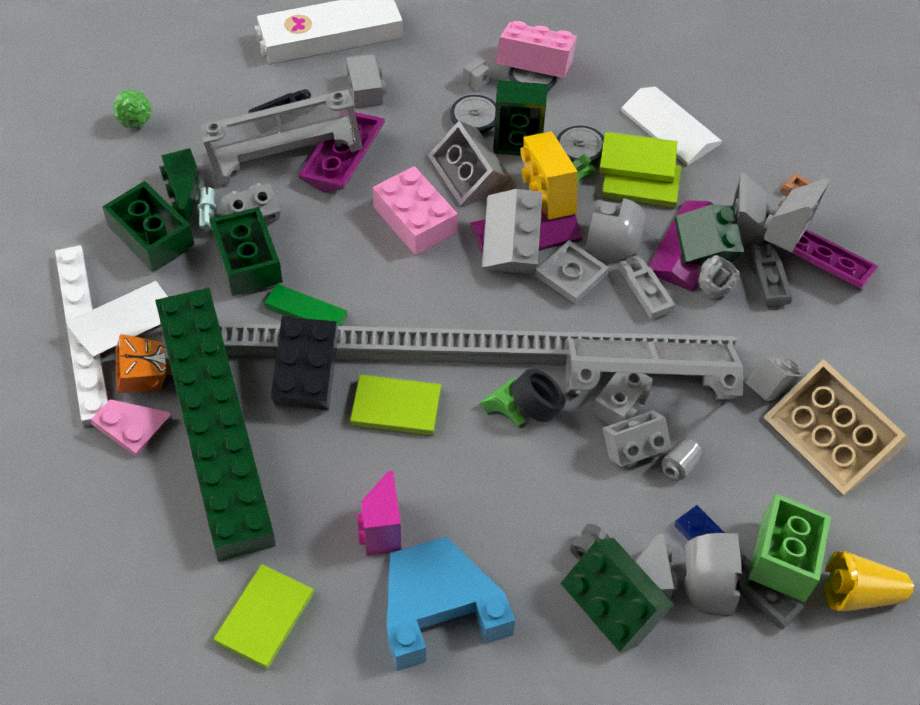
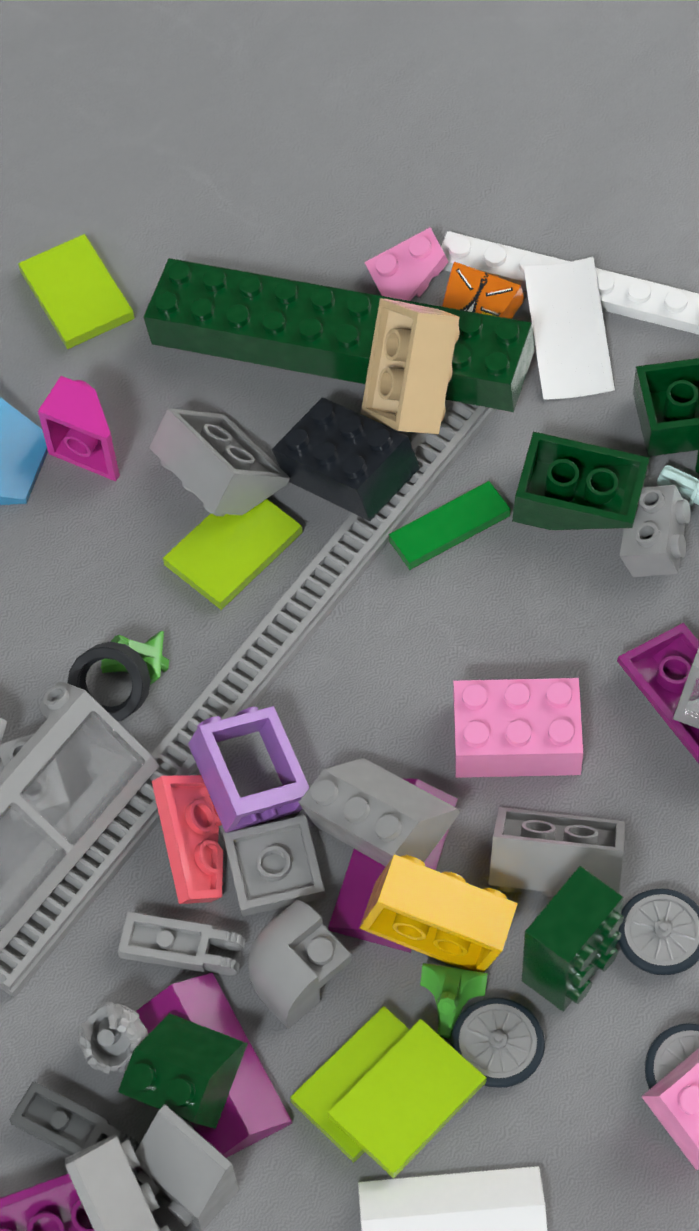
camera: 130 degrees right, 5 degrees up
(231, 338) = (410, 366): none -> tan slope
(351, 433) = (216, 461): none -> light grey slope
(540, 282) = (261, 806): none -> medium lavender window
(592, 308) = (190, 837): none -> coral wing

